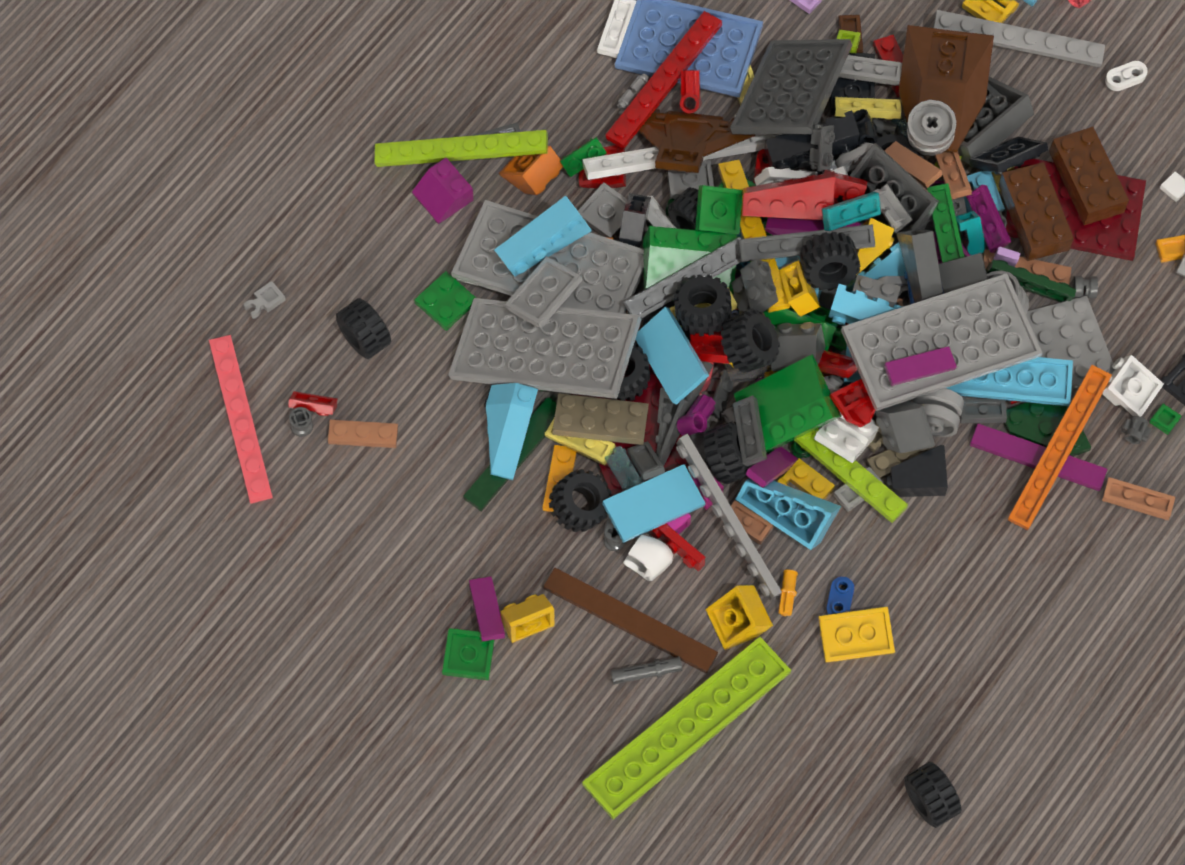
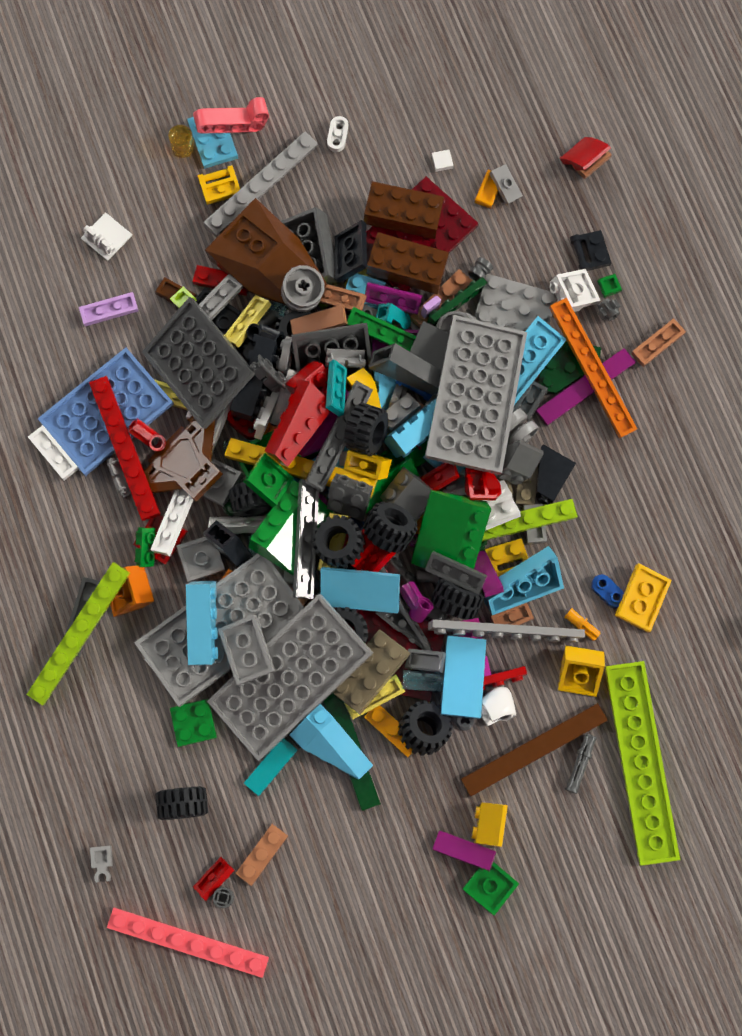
camera: 60 degrees left, 10 degrees up
(443, 191) = (102, 668): magenta slope -> none
(450, 392) = (270, 767): none -> teal tile
(920, 366) = (489, 422): magenta tile -> none

